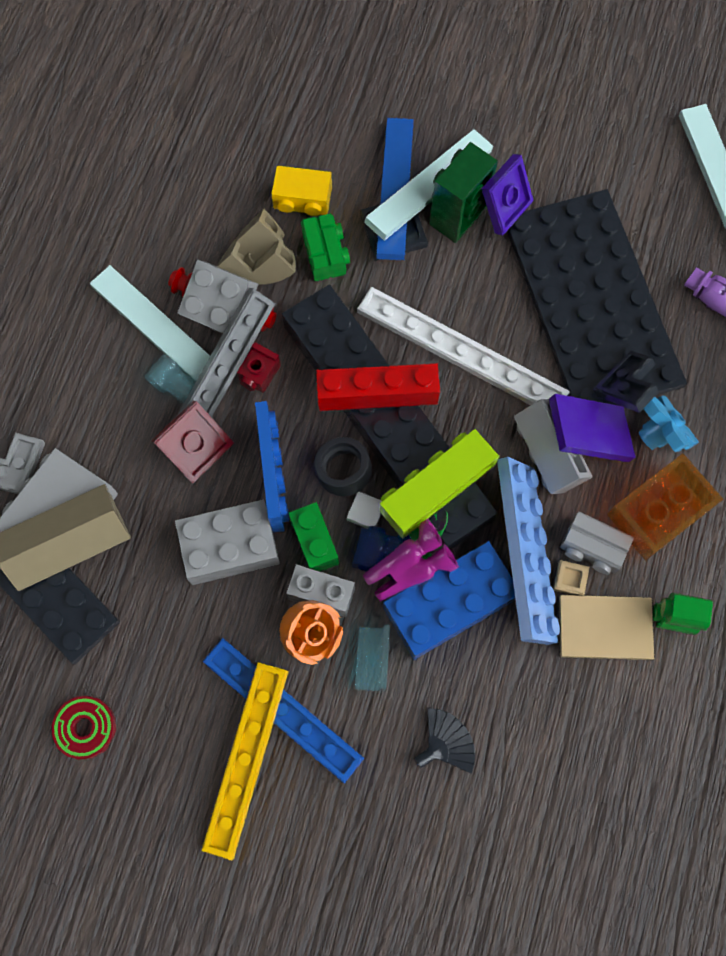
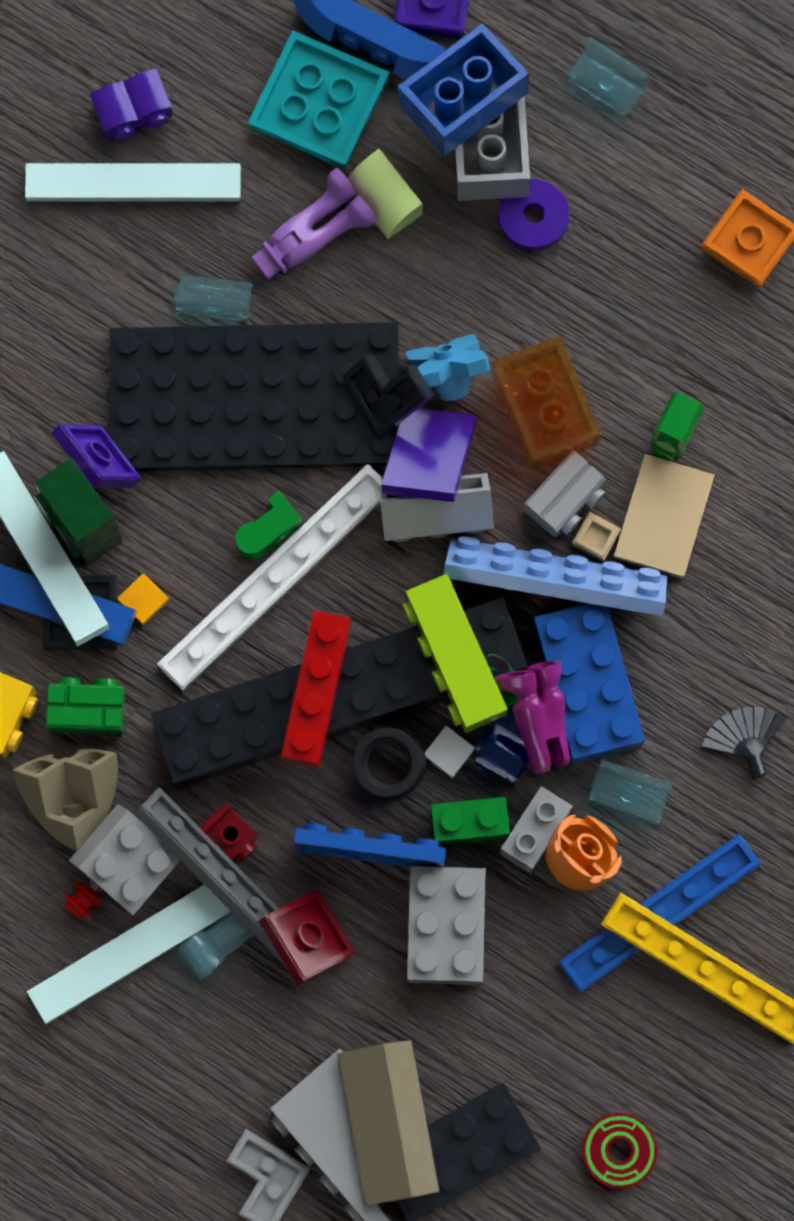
camera: 75 degrees left, 5 degrees up
(416, 266) = (144, 598): none -> light orange tile
(495, 334) = (268, 531): none -> green leg
(655, 251) = (213, 298): none -> clear light blue panel

